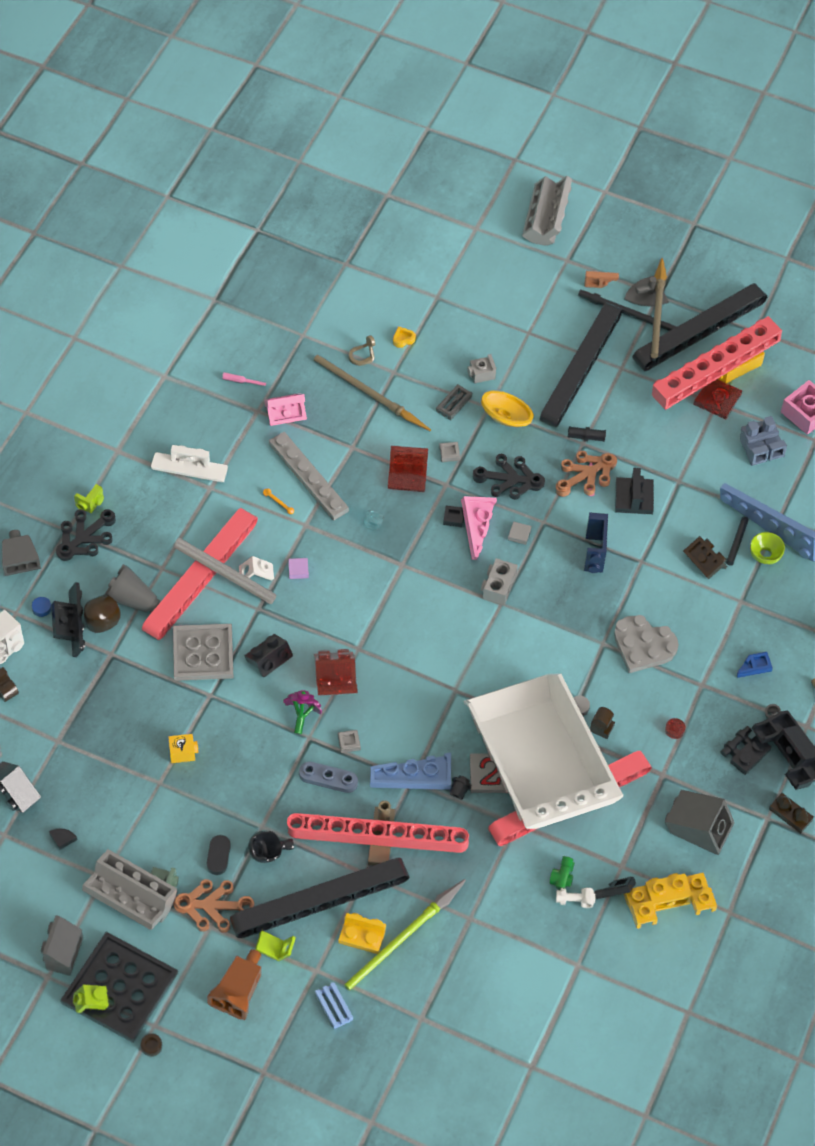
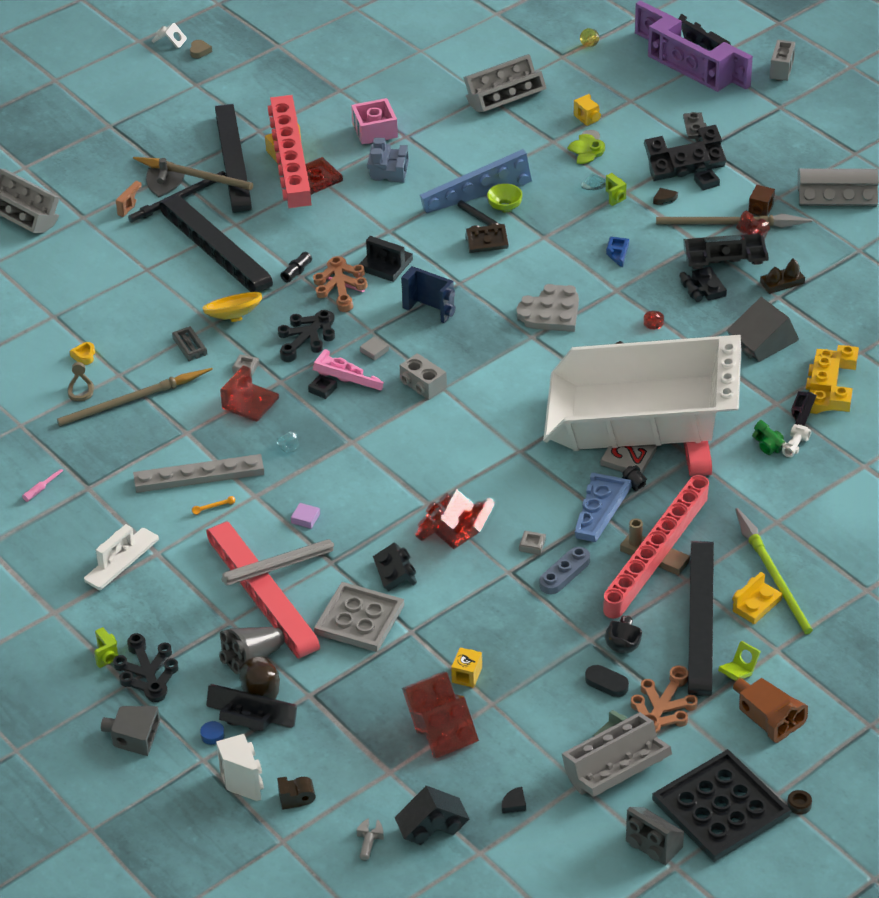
camera: 60 degrees left, 15 degrees down
(90, 997) = (729, 825): lime bracket -> none
(117, 749) = (440, 714): none -> clear red bracket
(258, 567) = (288, 540): white bracket -> none
(286, 409) = (106, 458): bright pink bracket -> none
(302, 697) = (478, 549): plant -> none
(326, 990) = (824, 646): light blue tile -> none
(482, 369) = (169, 308): light grey brick -> none
(771, 709) = (671, 253): dark grey hinge -> none

